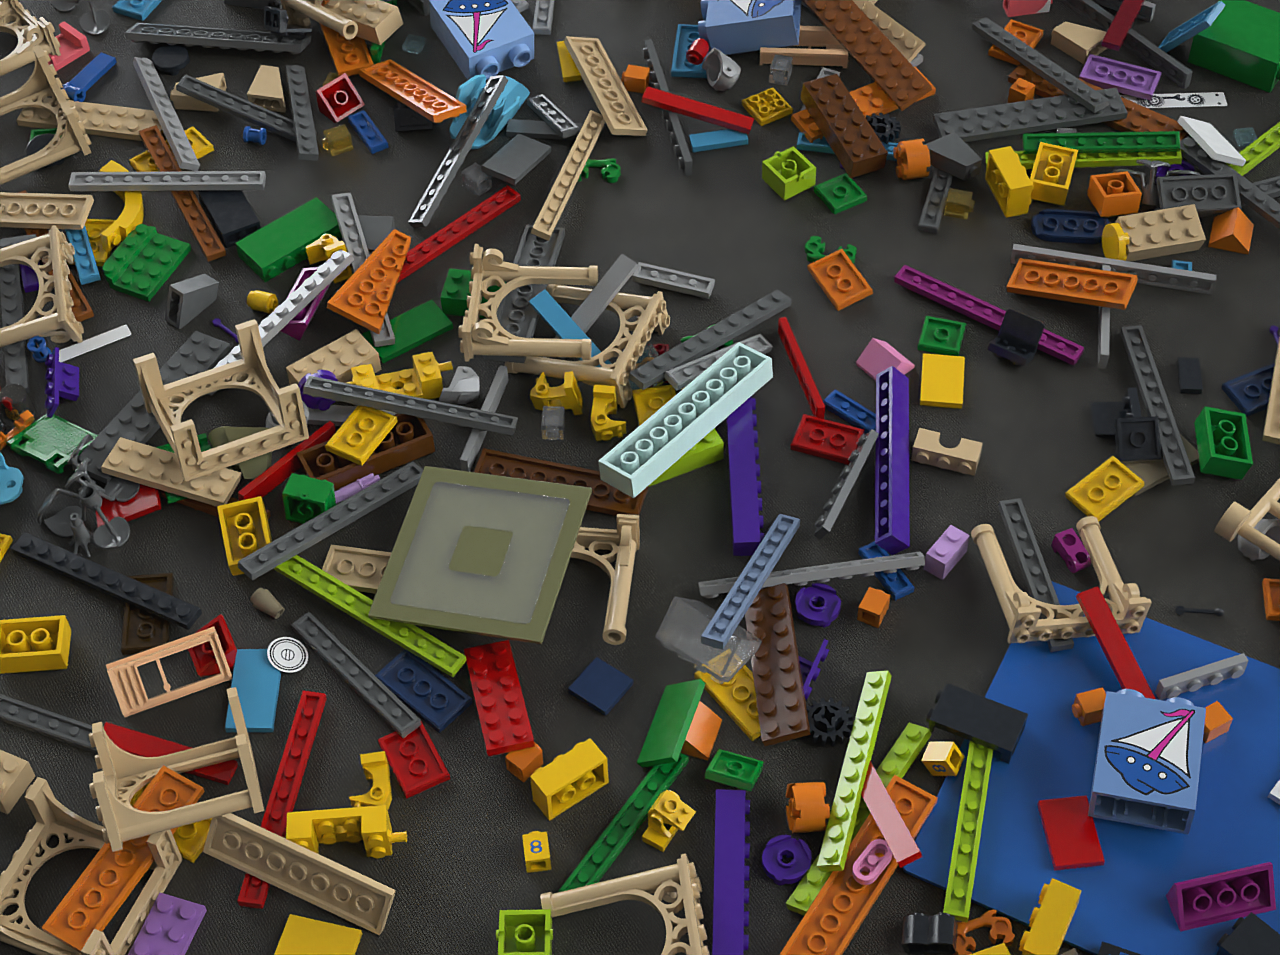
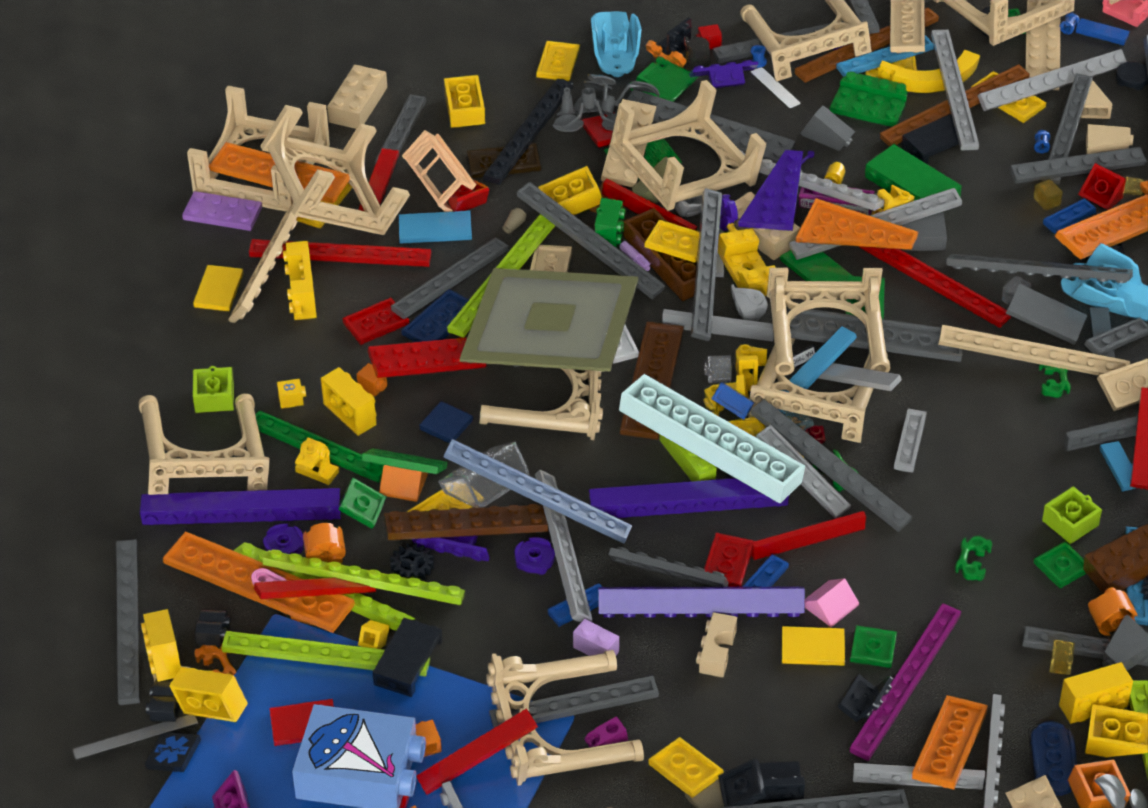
camera: 85 degrees right, 5 degrees down
(287, 654) = (466, 239): white sticker -> none
(310, 339) = (777, 198): none -> dark purple wing
(375, 768) = (346, 298): yellow tile -> none
(622, 402) = (733, 400): none -> blue tile
(839, 279) = (933, 563): orange tile -> none
(873, 607) = (532, 592): orange brick -> none
(1114, 242) = (1018, 779): yellow tile -> none

